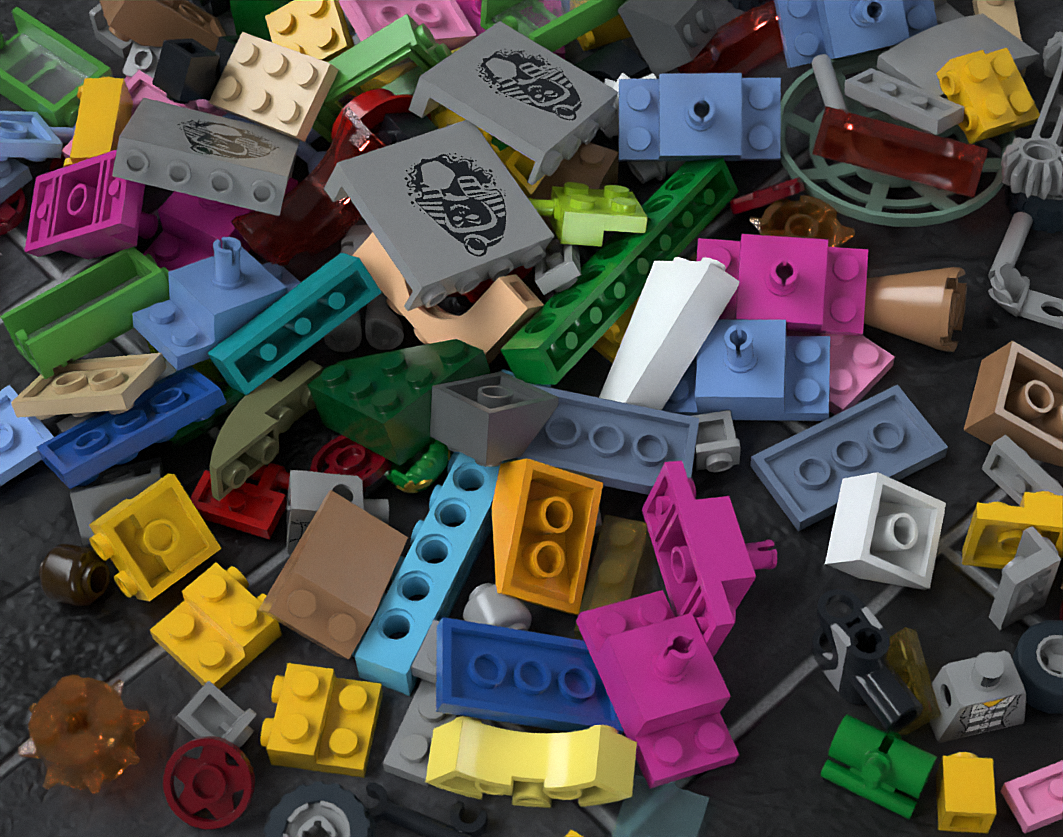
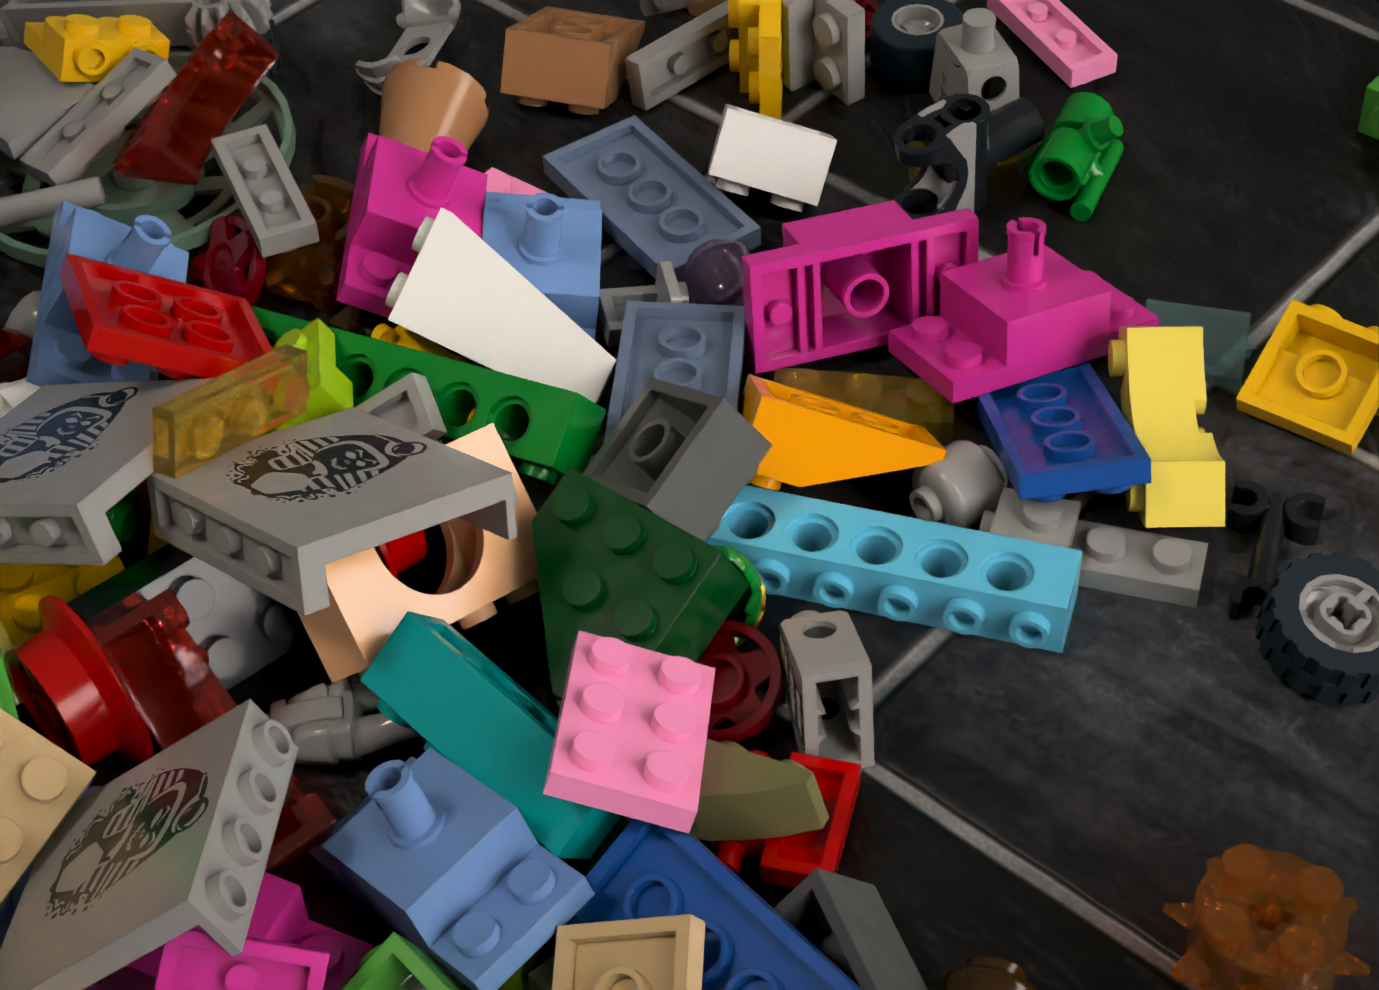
camera: 95 degrees left, 10 degrees down
(153, 539) = (921, 890): yellow plate -> none
(209, 782) = (1295, 763): dark red wheel -> none
(216, 627) = (1030, 815): yellow plate -> none
(216, 715) = (1195, 772): light grey bracket -> none
(262, 376) = (631, 732): none -> bright pink plate
(321, 721) = (1153, 669): yellow plate -> none
(335, 576) = (964, 635): medium nougat slope -> none
(515, 154) = (229, 410): none -> clear yellow plate
(621, 128) = (160, 321): none -> red plate
(746, 490) = (716, 273): none -> clear purple head
(809, 193) = (265, 191): none -> light grey plate
(965, 793) = (1102, 78): yellow brick -> none
(1012, 241) = (317, 85): light grey piece -> none

